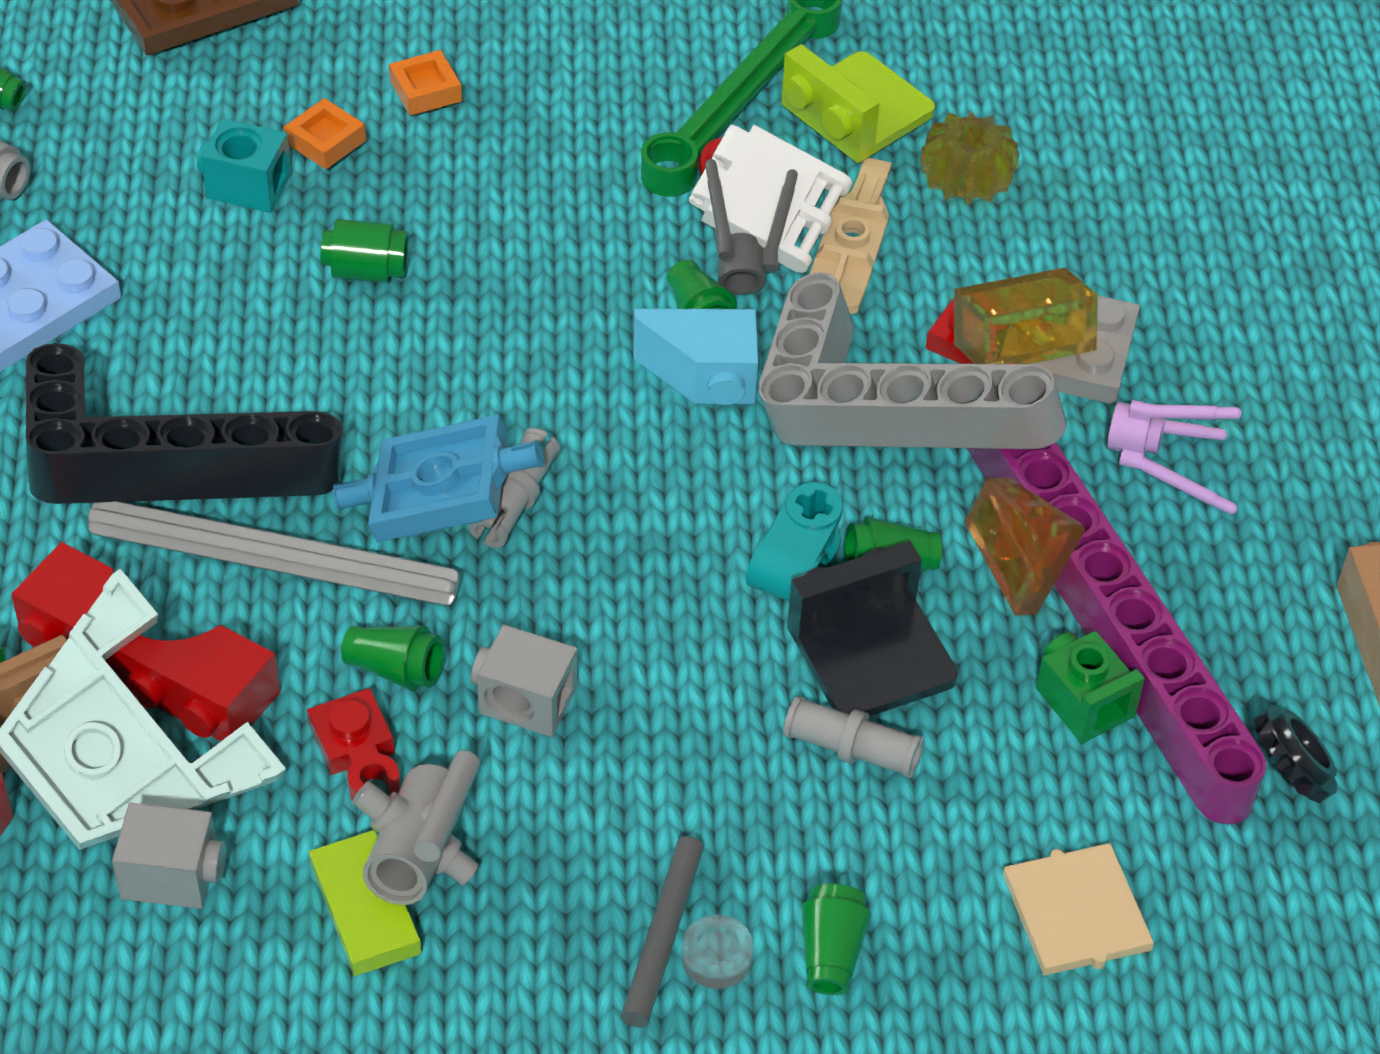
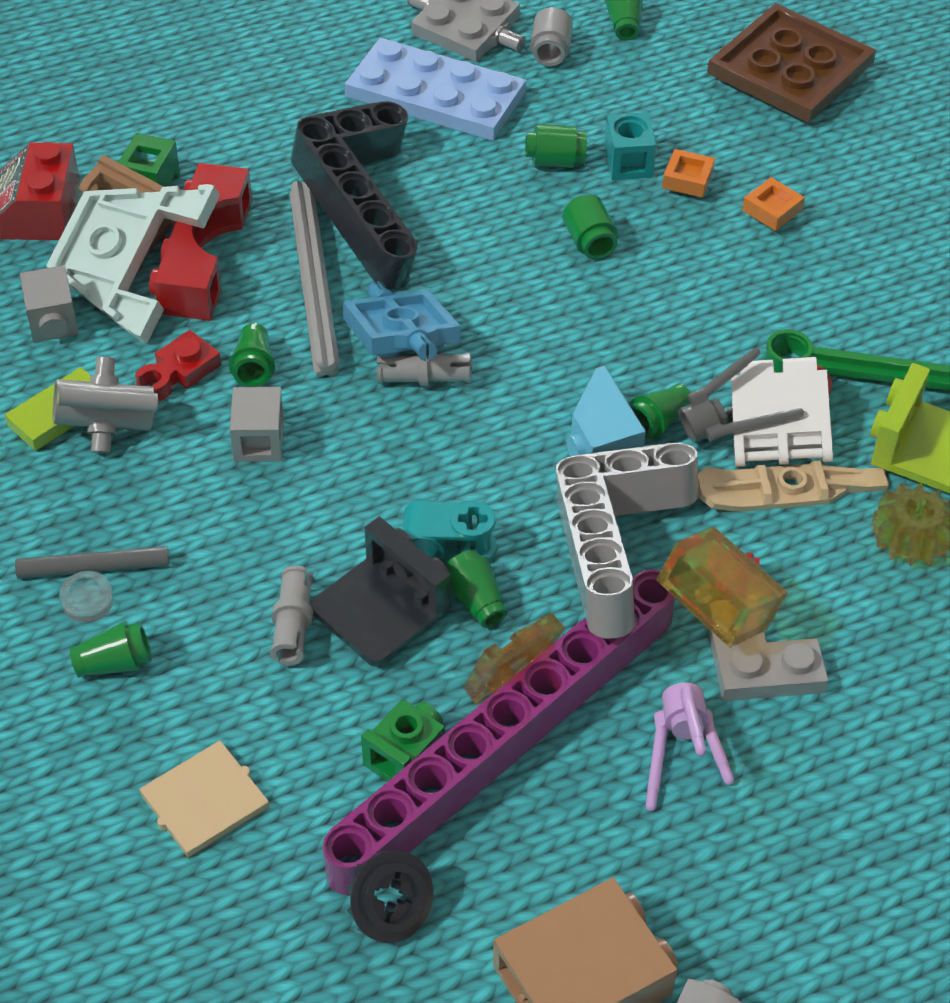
camera: 70 degrees right, 0 degrees up
(197, 232) = (556, 146): none -> green brick

